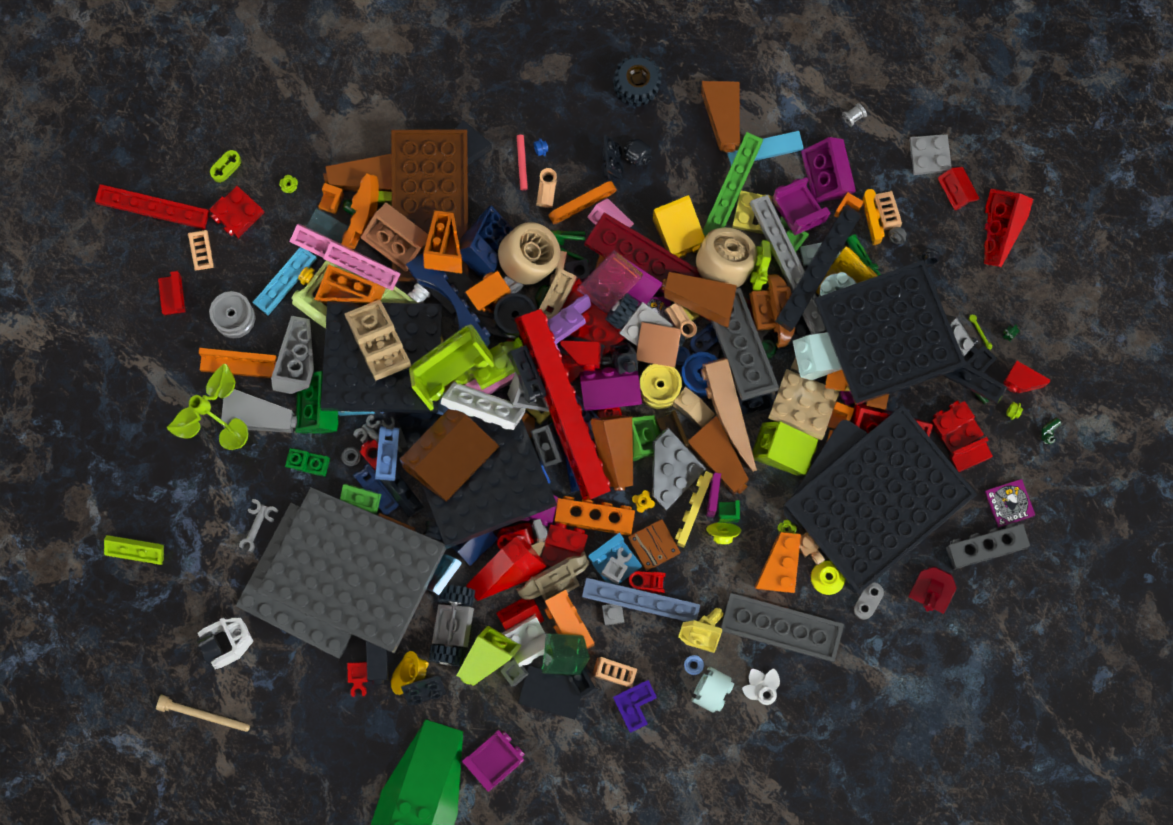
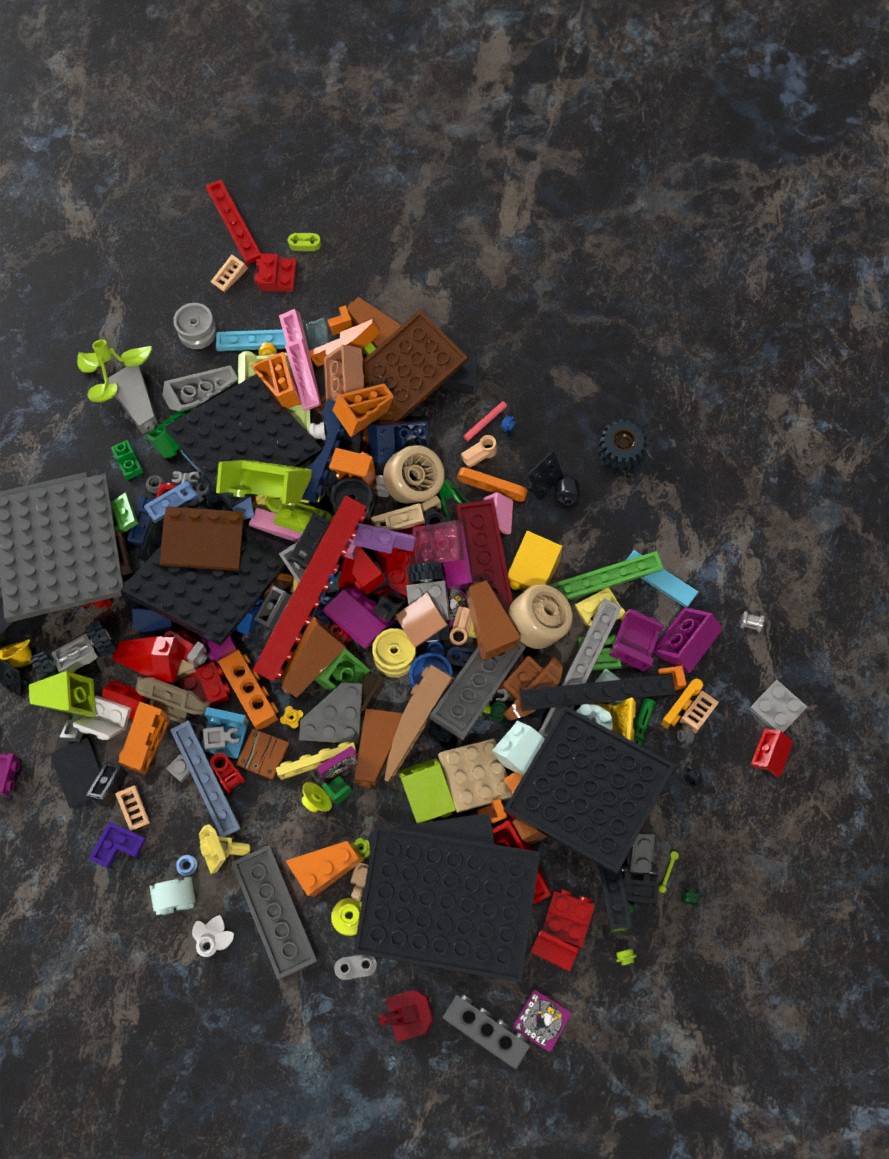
camera: 55 degrees right, 10 degrees down
(171, 294) = (181, 282): red panel -> none
(238, 362) = (162, 355): orange fence -> none
(261, 511) = (64, 461): light grey bar -> none
(288, 188) = (329, 291): lime plate -> none
(377, 340) = (250, 423): tan slope -> none
(443, 573) = (111, 613): medium azure tile -> none
(482, 405) = (259, 532): white plate -> none
(564, 654) = (109, 751): clear green slope -> none
(693, 407) = (399, 690): tan slope -> none
(723, 109) = (658, 525): dark orange slope -> none
(759, 272) = (559, 645): lime plate -> none
(1006, 218) = (783, 812): red wedge -> none
(1024, 379) = (659, 941): red slope -> none
(1048, 431) = (634, 1001): dark green arm -> none

